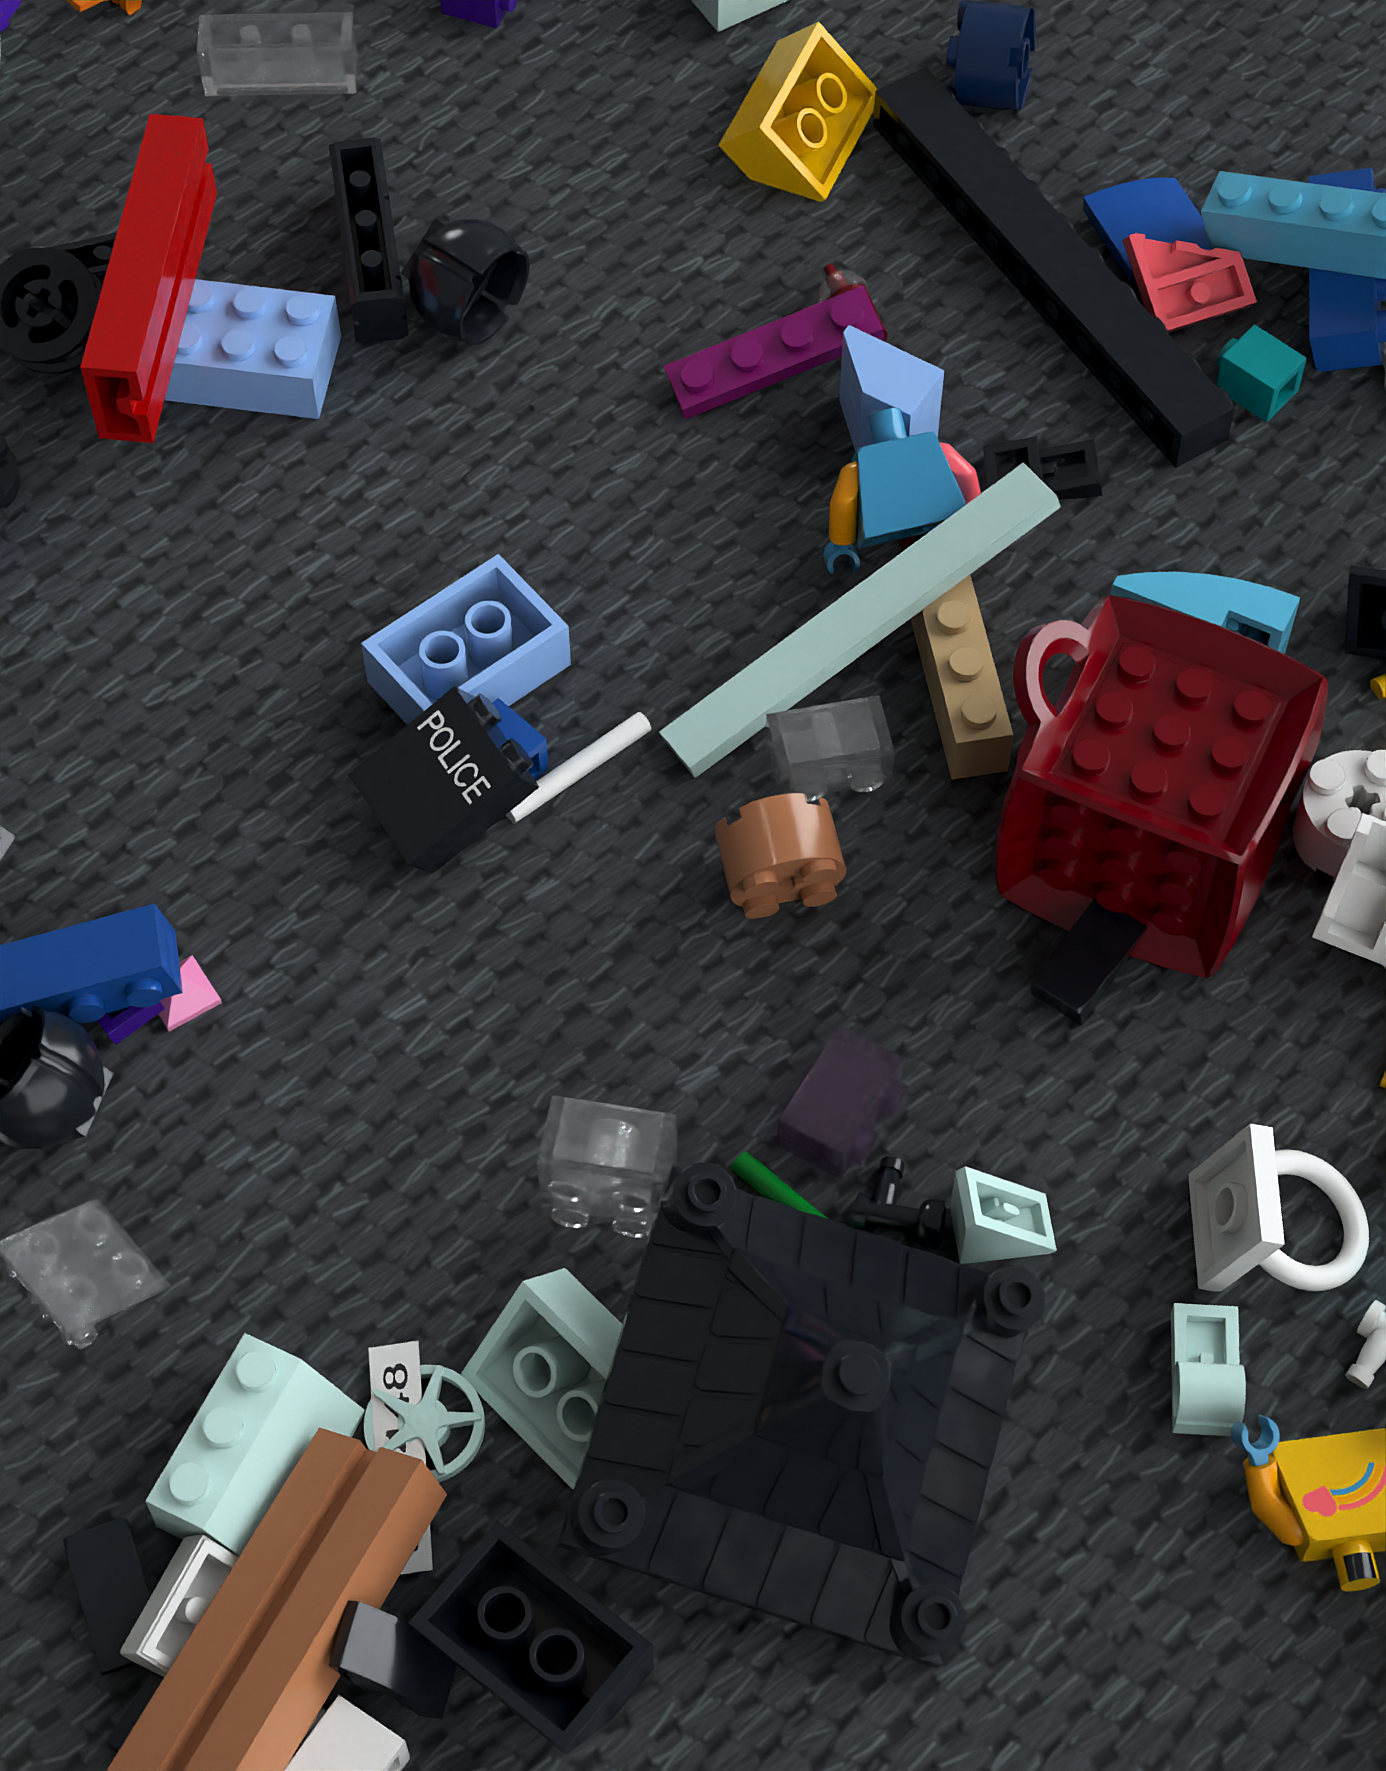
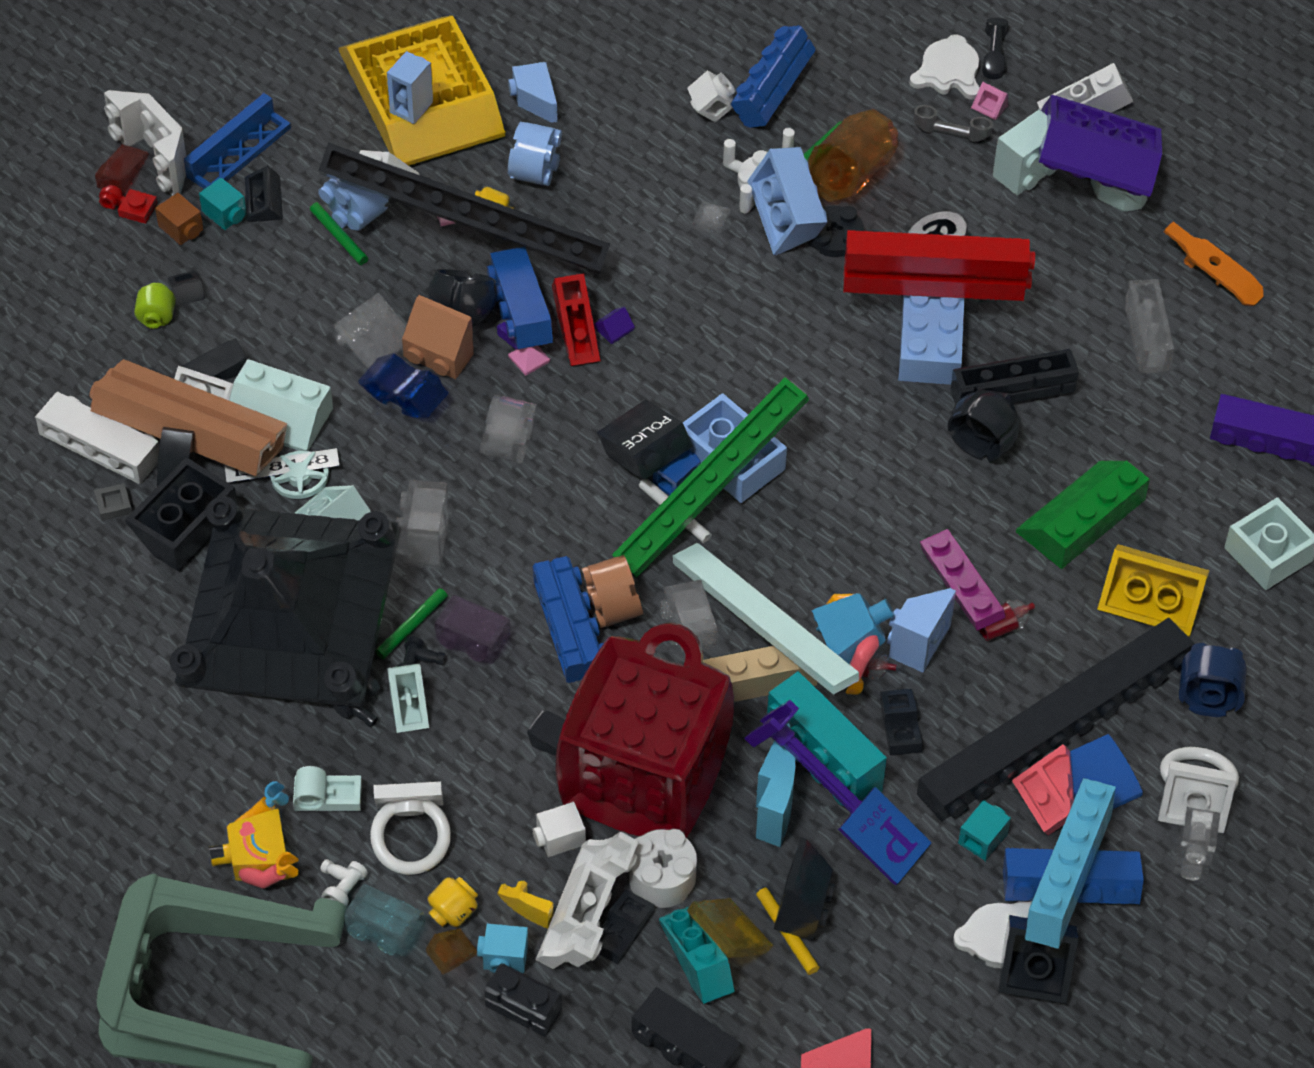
camera: 85 degrees right, 5 degrees down
(79, 887) = (575, 319): none -> red slope
(123, 841) = (615, 325): none -> dark purple slope
(135, 1134) = (438, 337): none -> nougat slope
(220, 1227) = (396, 381): none -> clear blue brick
(383, 1014) = (508, 428): none -> clear brick
(561, 667) = (711, 476): none -> green plate
(637, 185) = (1085, 510): none -> green slope
(823, 940) = (567, 615): none -> blue brick
(1149, 524) = (831, 737): none -> teal brick
(1204, 99) = (1196, 785): none -> white tile
(1261, 498) = (874, 823): none -> piece
(1279, 973) = (559, 829): none -> white brick
(1294, 106) = (1196, 843): none -> clear brick

